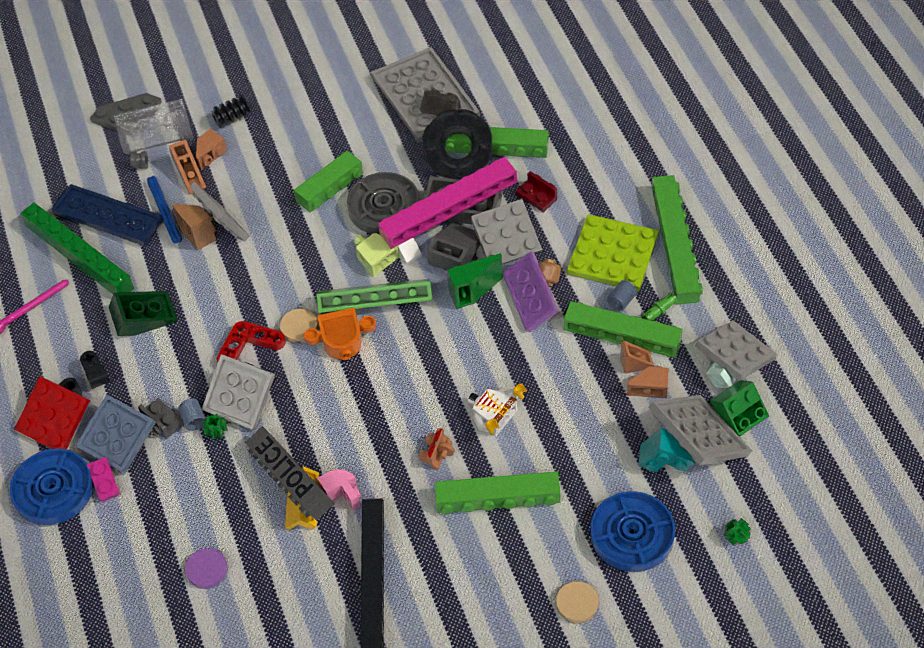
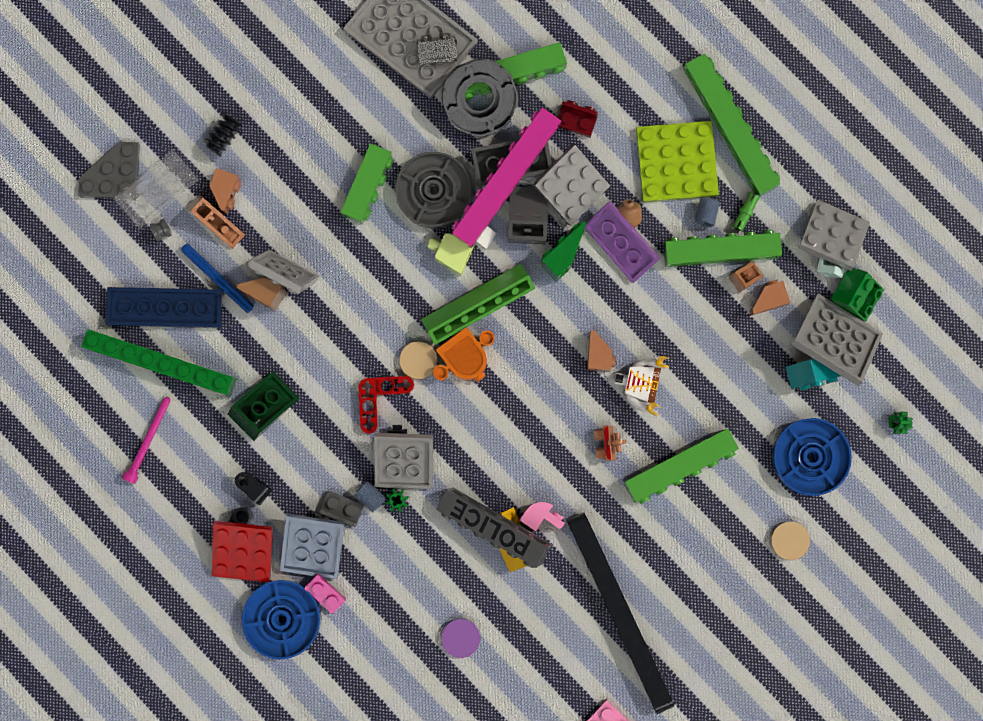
camera: 25 degrees left, 30 degrees up
(464, 374) = (599, 354): none -> nougat slope

